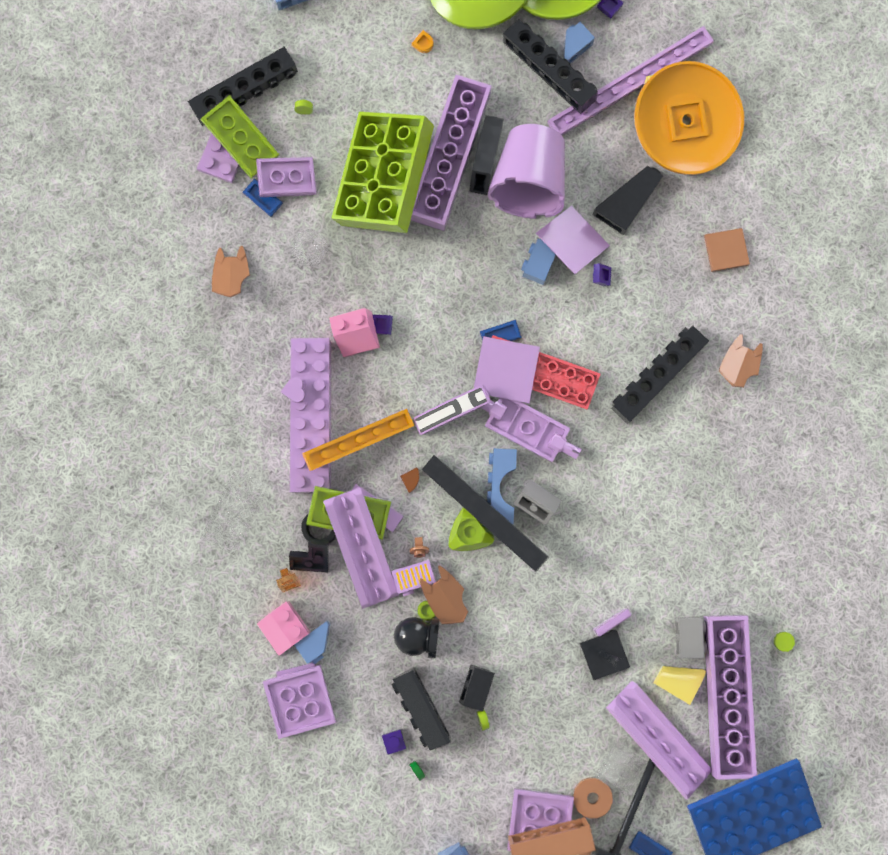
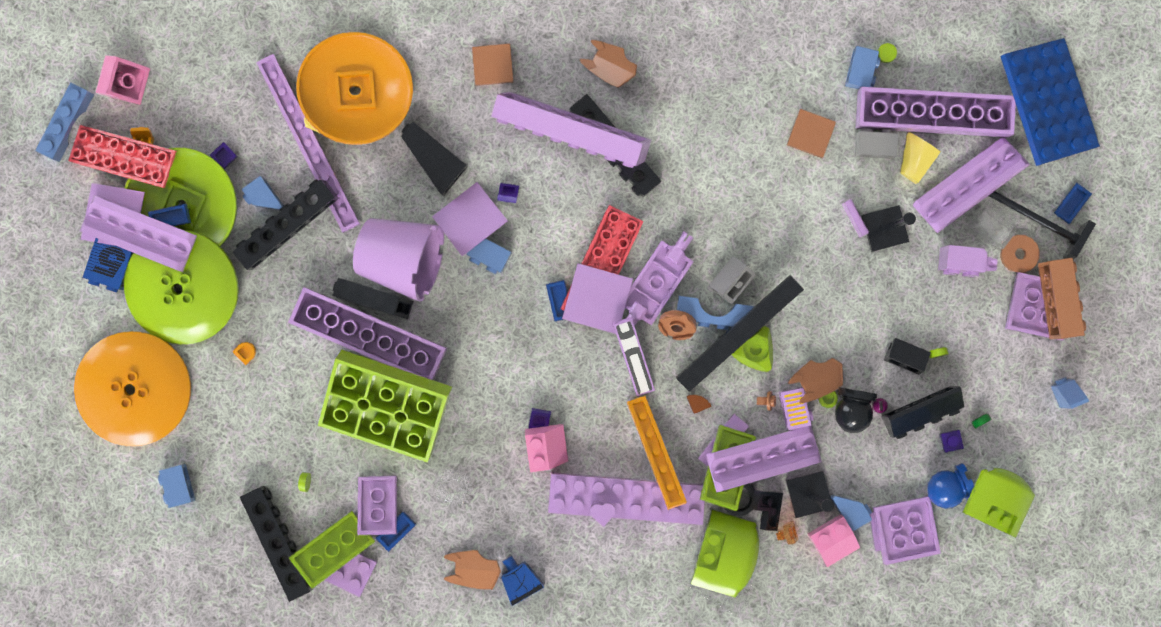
camera: 85 degrees left, 5 degrees up
(222, 319) = (519, 580): none -> blue torso
(262, 520) = (726, 554): none -> lime slope
(328, 599) = (809, 494): none -> black tile
(336, 796) = (1000, 500): none -> lime slope
(345, 742) = (949, 488): none -> blue tile
(424, 659) = (876, 405): none -> magenta hinge
(490, 459) = (686, 323): none -> nougat tile
(580, 740) = (965, 260): none -> lavender hinge
(673, 326) = (571, 128): none -> lavender brick
(693, 570) = (811, 133): none -> nougat tile
(767, 617) = (862, 68): none -> medium blue brick

